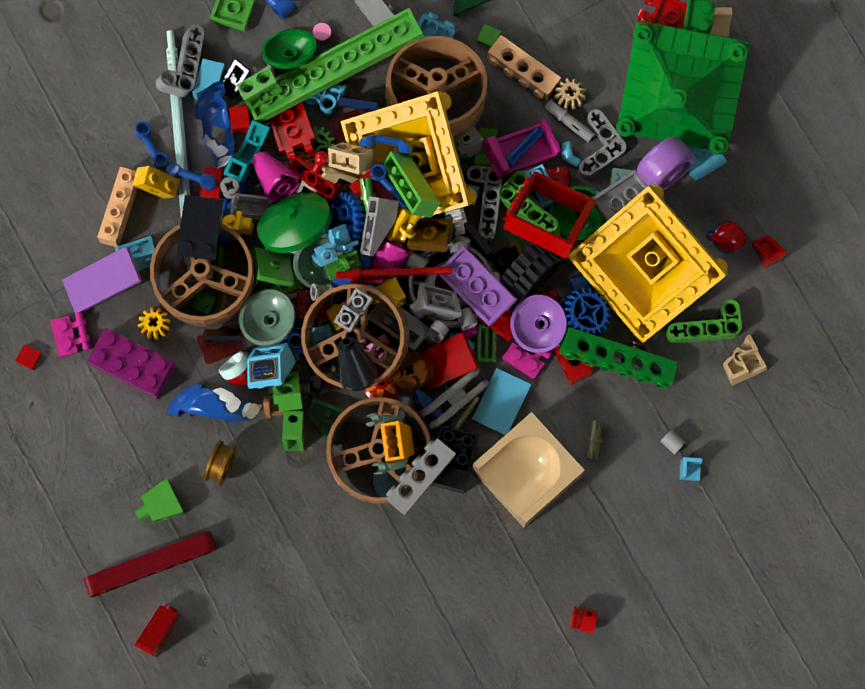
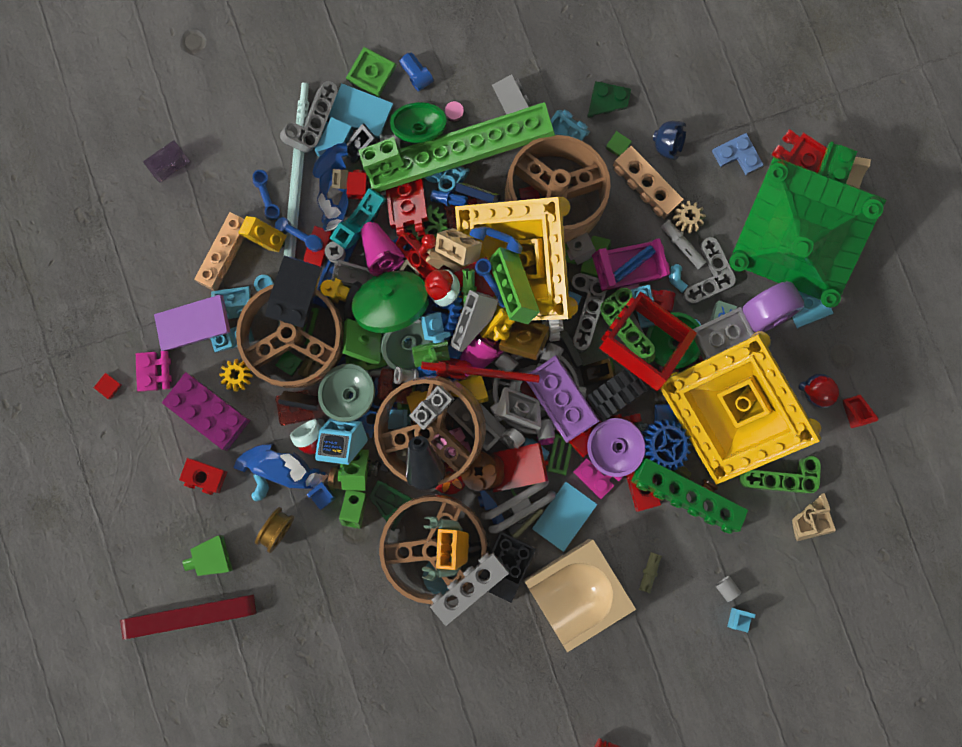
camera: 10 degrees right, 5 degrees up
(47, 129) = (166, 161): none -> clear purple brick
(130, 419) = (194, 468): none -> red brick
(141, 291) = (228, 340): none -> medium azure slope
(157, 630) = (182, 687): red slope -> none
(162, 229) = (262, 282): none -> medium azure tile
(199, 428) = (261, 489): none -> medium azure arm
(221, 116) = (339, 179): none -> dark tan tile
(227, 45) = (358, 107): none -> medium azure tile
(254, 239) = (348, 304): none -> black slope
(259, 424) = (321, 495): none -> blue panel
(325, 254) = (414, 341): medium azure bracket -> none
(331, 116) = (448, 198): none -> blue axle
(342, 198) = (442, 287): none -> red piece
(538, 22) = (670, 139): none -> dark blue cylinder
(609, 21) = (740, 149): none -> medium blue plate

